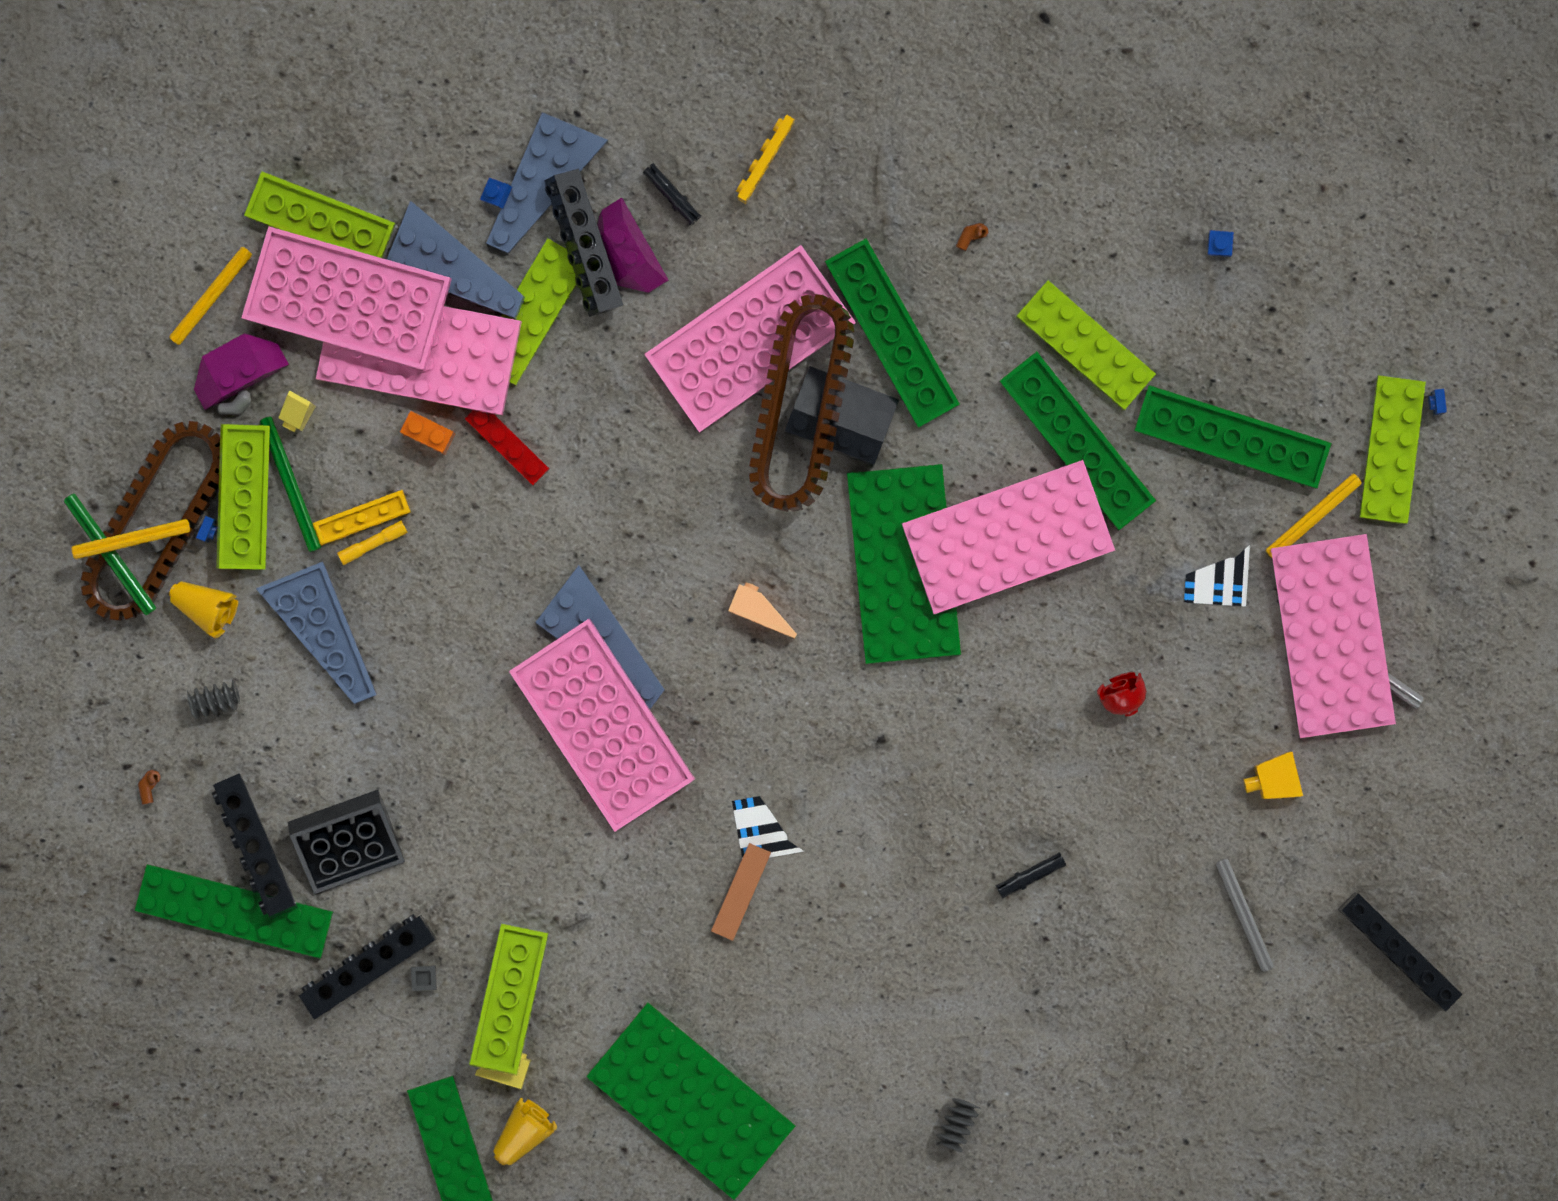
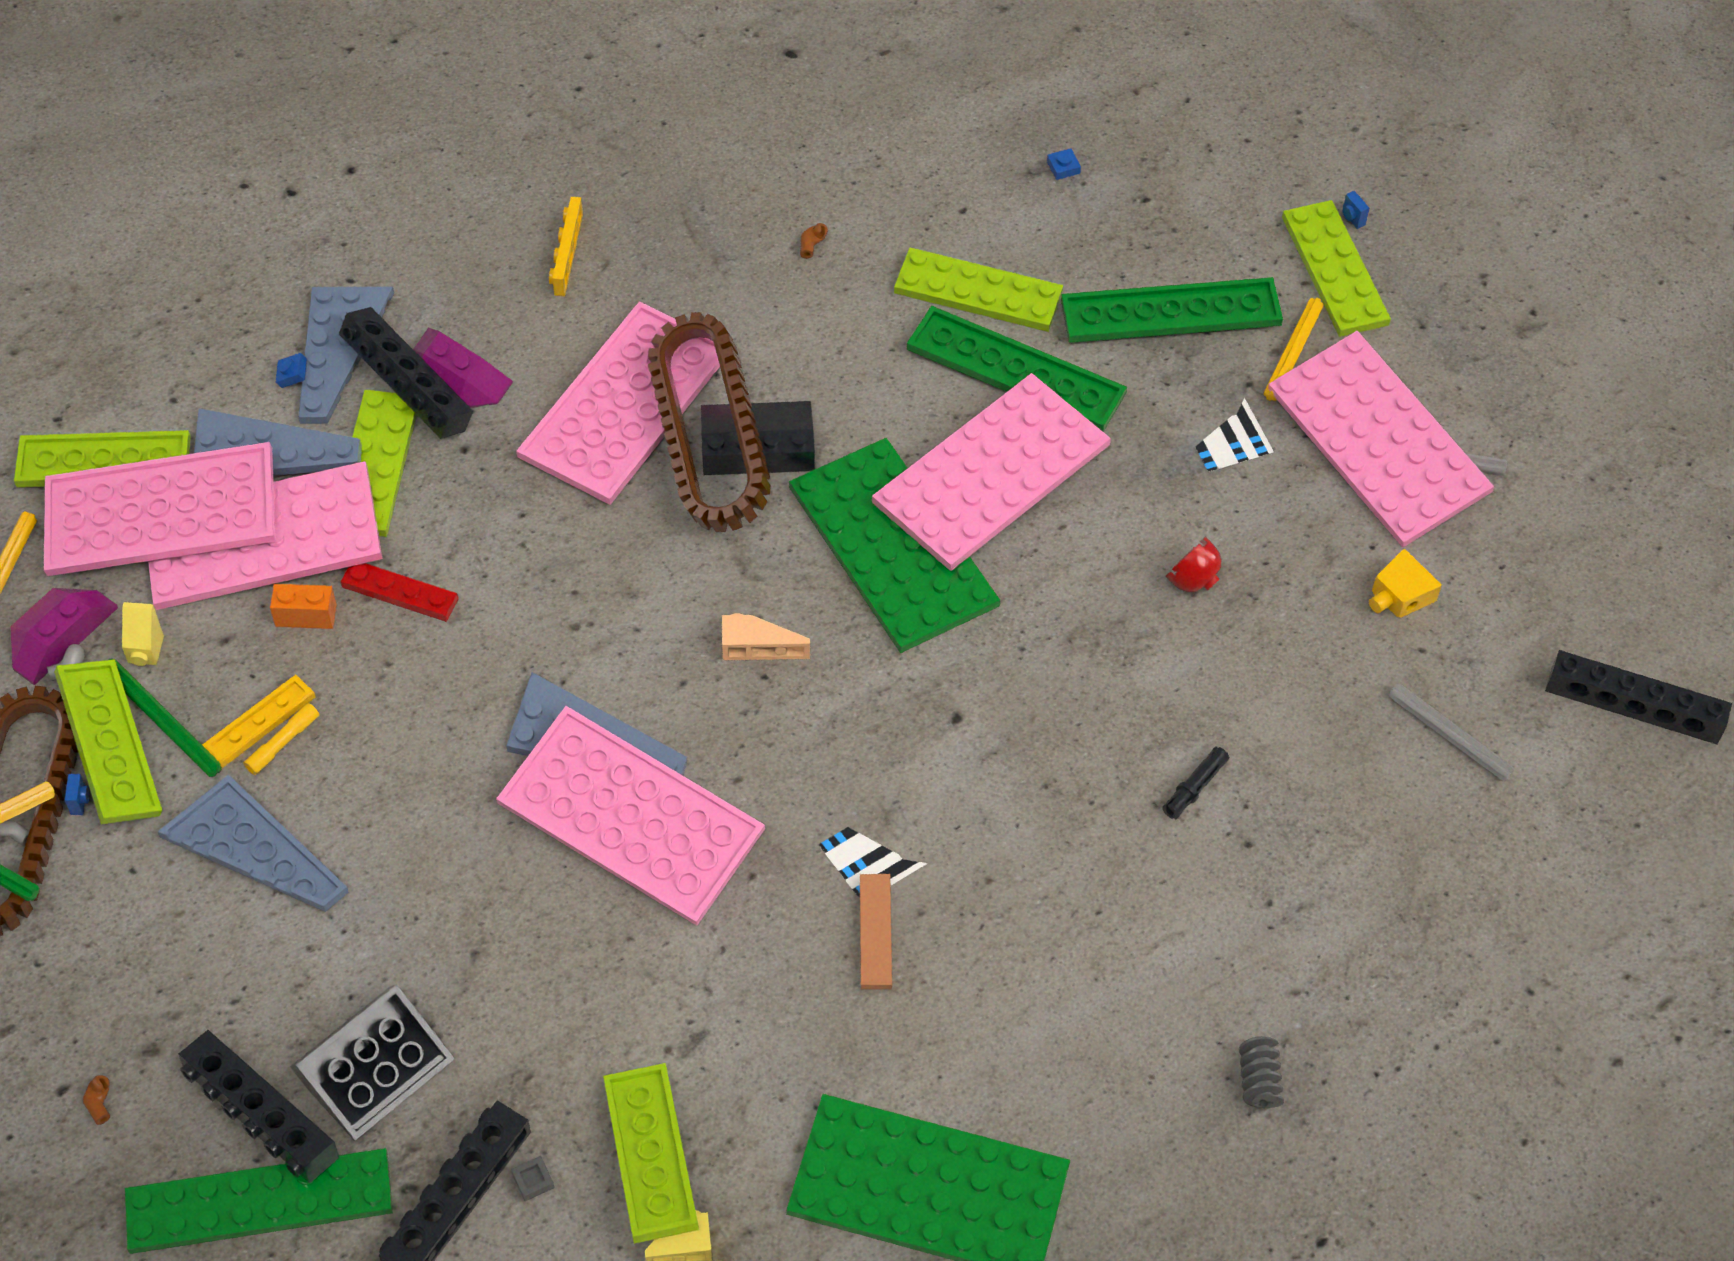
camera: 25 degrees left, 30 degrees down
(205, 606) = (102, 870): yellow cone -> none
(214, 700) = (147, 966): dark grey piece -> none
(679, 202) = (491, 311): black pin -> none
(892, 333) = (779, 347): green plate -> none

